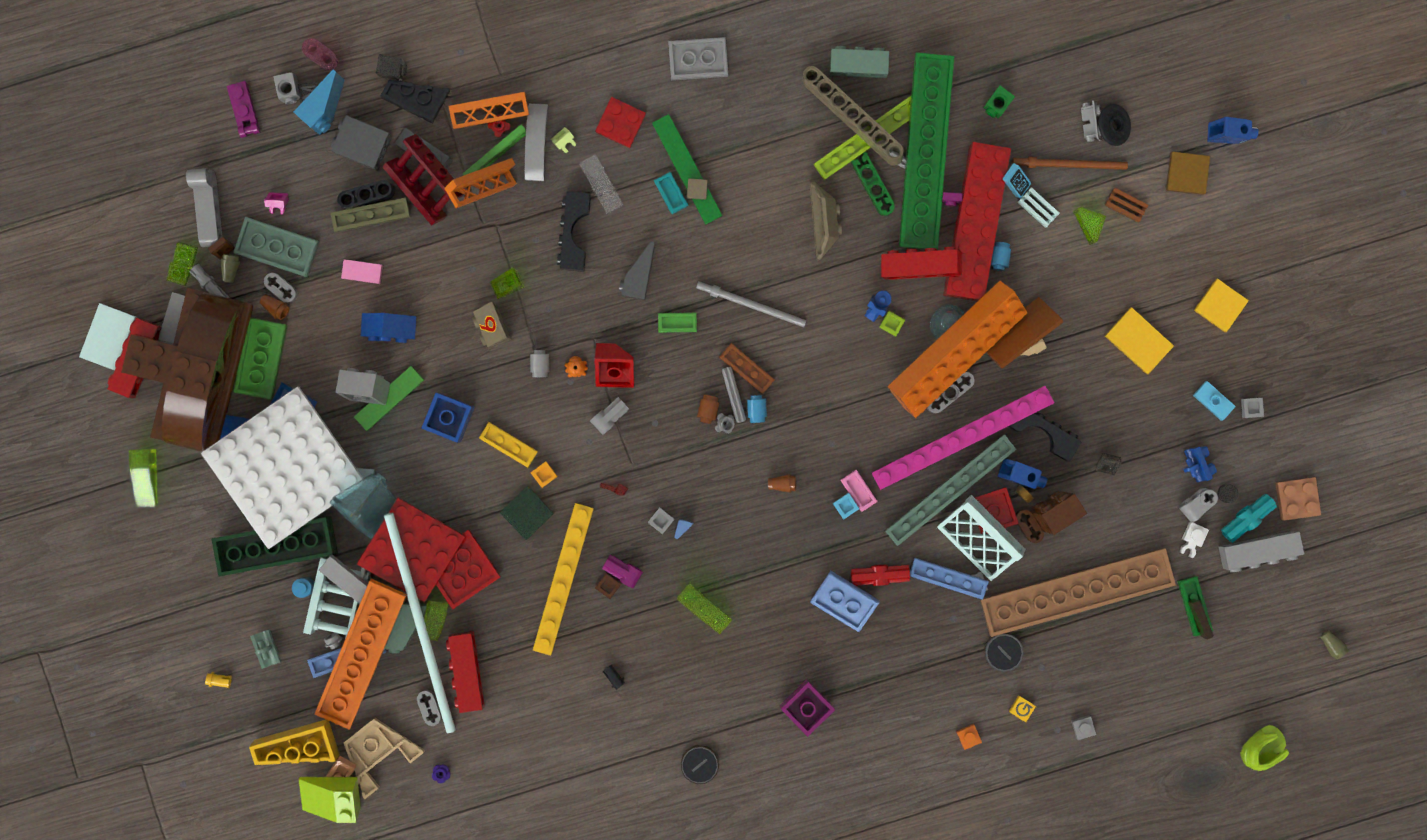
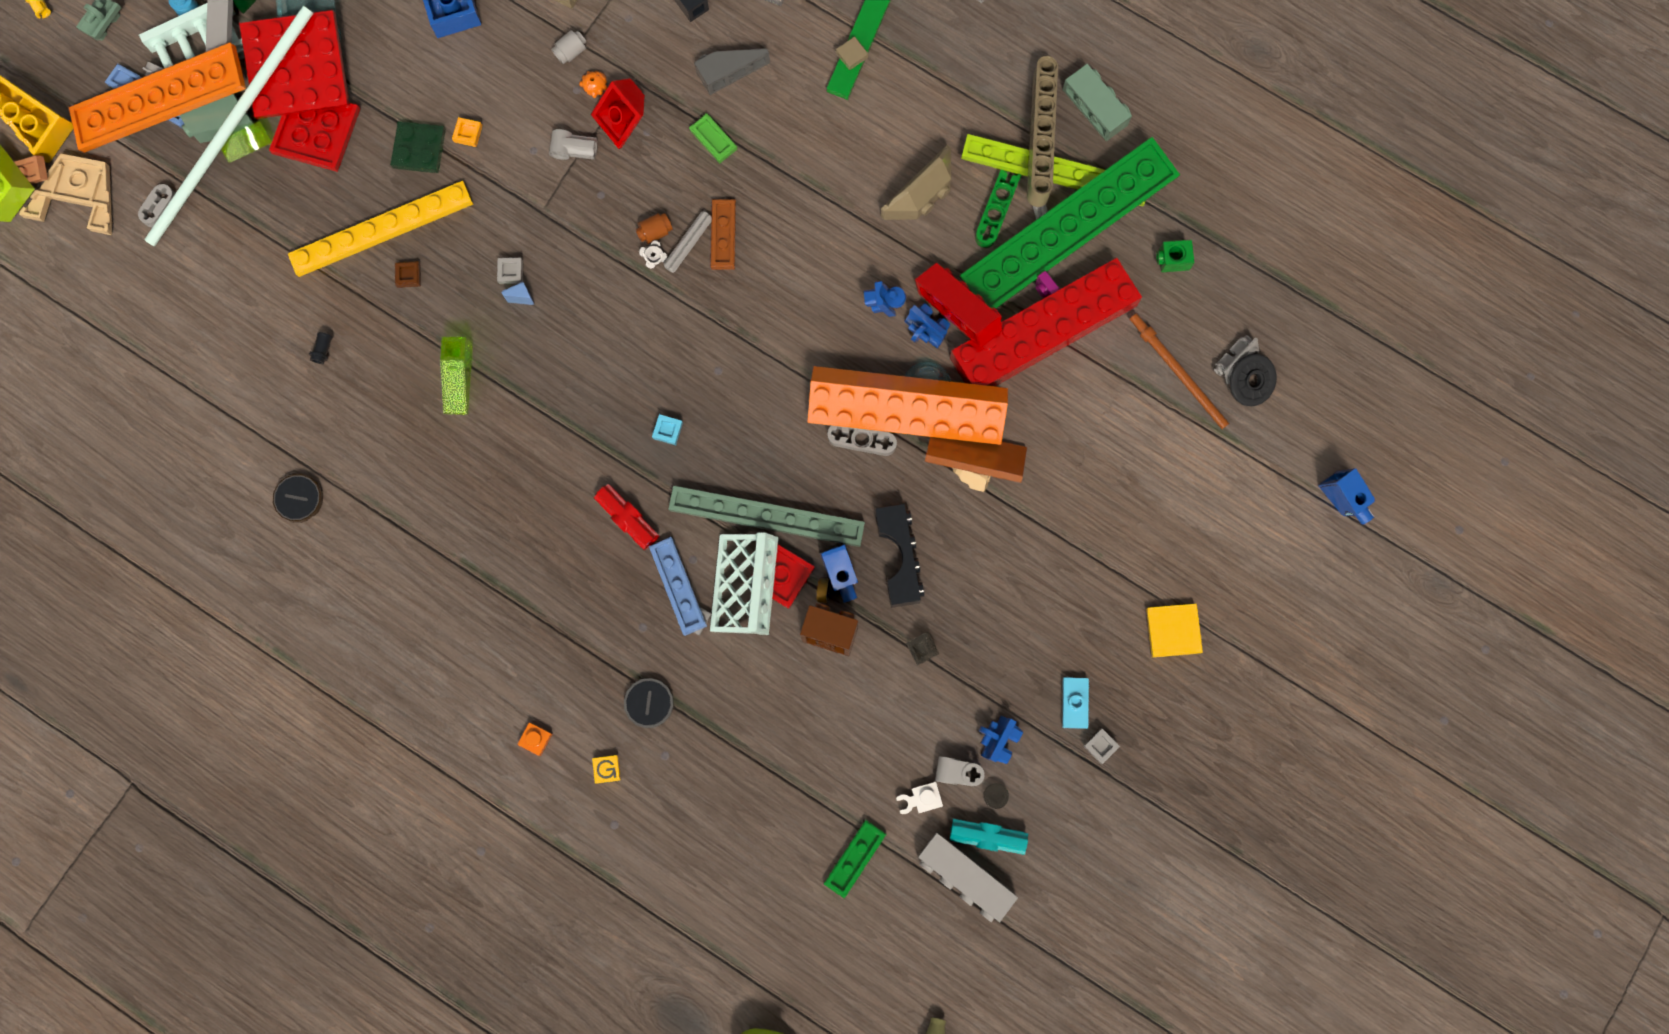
camera: 50 degrees right, 10 degrees down
(441, 778) = (105, 267): dark purple plate -> none
(466, 672) = (217, 209): red brick -> none
(508, 444) = (470, 81): yellow tile -> none
(619, 490) = (509, 211): clear red hand -> none
(626, 573) = (432, 277): magenta piece -> none
(671, 193) = (829, 37): teal tile -> none
(715, 291) = (772, 149): light grey bar -> none
(757, 409) = (691, 271): dark azure brick -> none
(783, 483) = (641, 355): dark orange cone -> none
(807, 707) = (435, 551): magenta brick -> none
(844, 601) = (572, 504): medium blue tile -> none
(858, 490) = (693, 431): bright pink tile -> none
(892, 323) = (881, 331): lime tile -> none
(914, 296) = (926, 328): none -> blue hips
(963, 437) = (828, 482): dark pink plate -> none
(1001, 256) = (1033, 377): dark azure brick -> none
(1016, 181) = (1117, 330): tile -> none
(1032, 523) = (790, 621): reddish brown beam -> none
(1050, 218) = (1112, 357): light aqua tile -> none
(1077, 592) = (770, 726): medium nougat plate -> none
(1083, 727) = (637, 848): light grey plate -> none
(1090, 223) = (1141, 436): clear neon green slope -> none
(1139, 340) = (1069, 579): yellow tile -> none
(1144, 206) = (1197, 455): dark orange tile -> none
(1188, 173) = (1271, 490): pearl gold tile -> none
(1200, 619) = (844, 871): dark brown tile -> none
(1298, 498) = (1052, 873): nougat plate -> none

